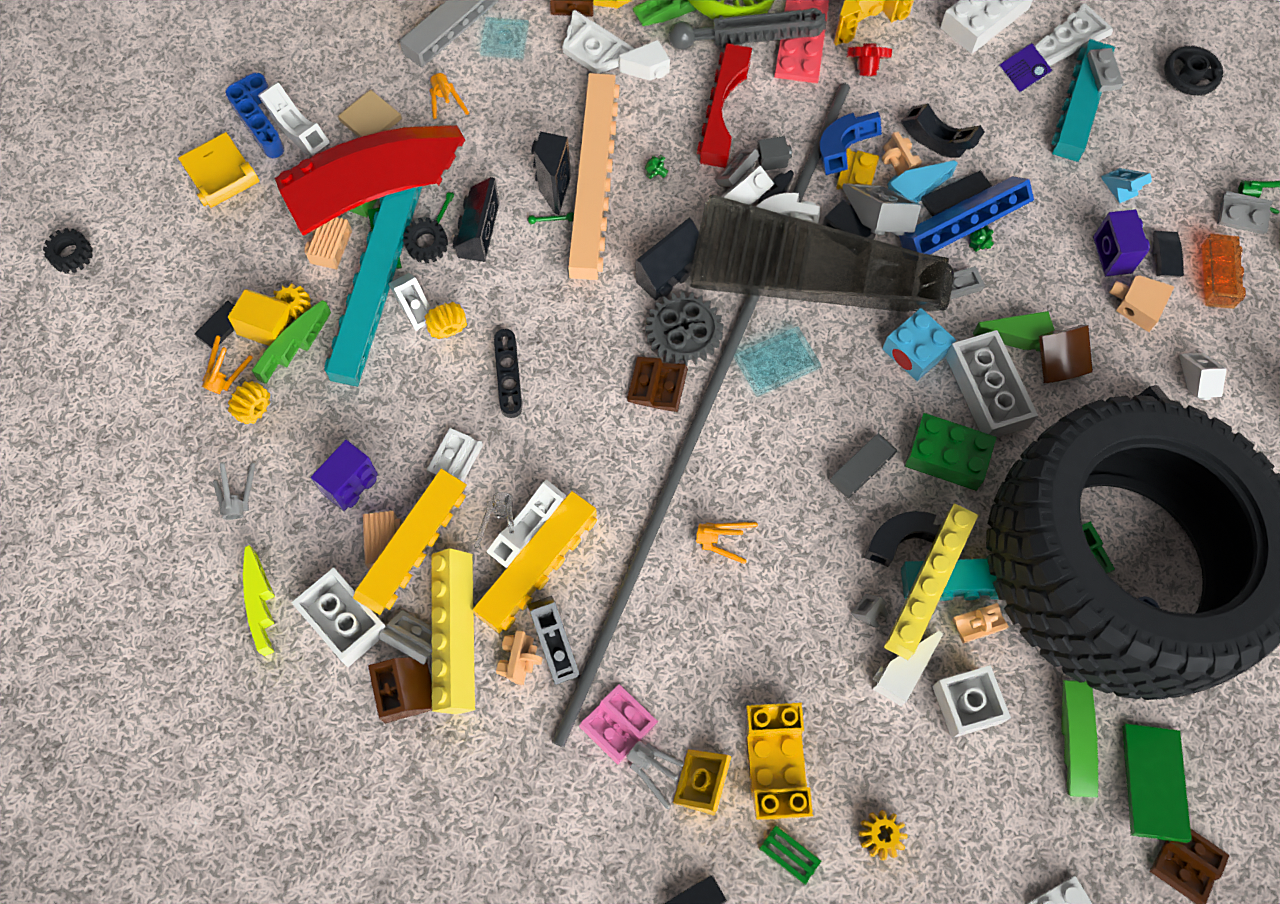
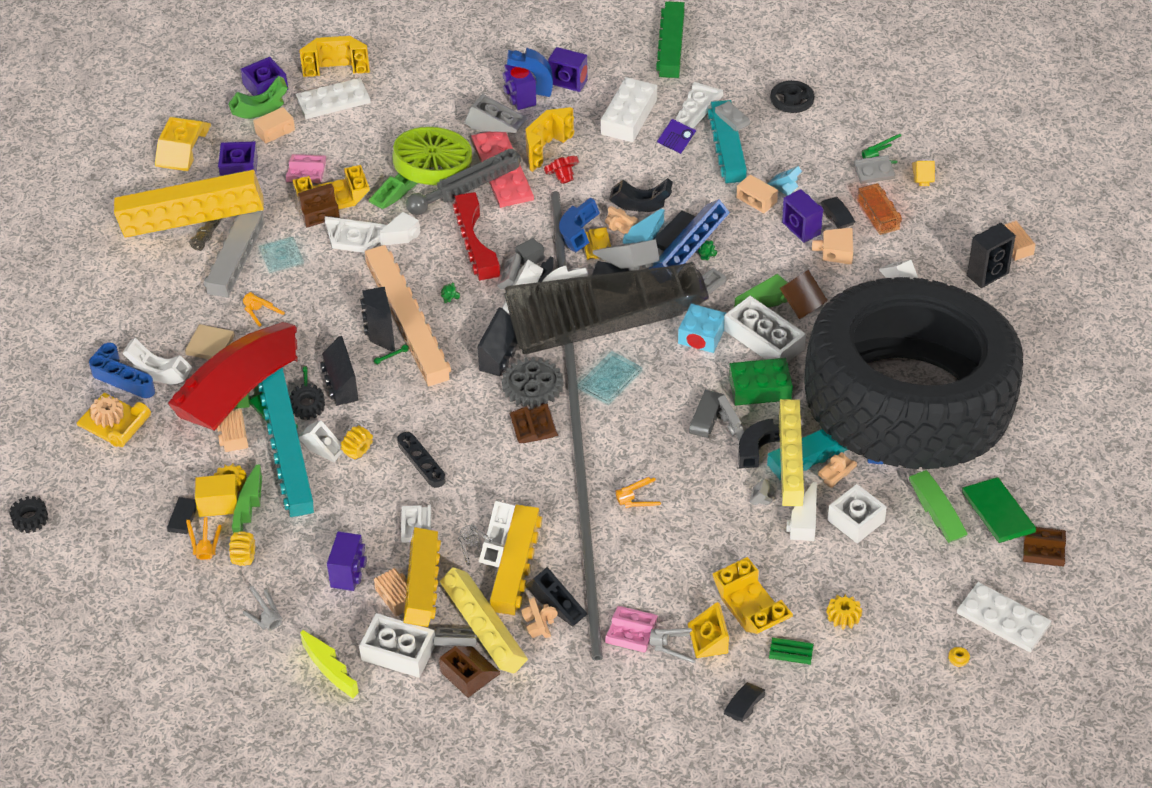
camera: 25 degrees left, 20 degrees down
(210, 159) = (106, 411): none -> light nougat gear
(886, 479) = (729, 415): none -> light grey plate
(1082, 186) = (757, 193): none -> light nougat brick

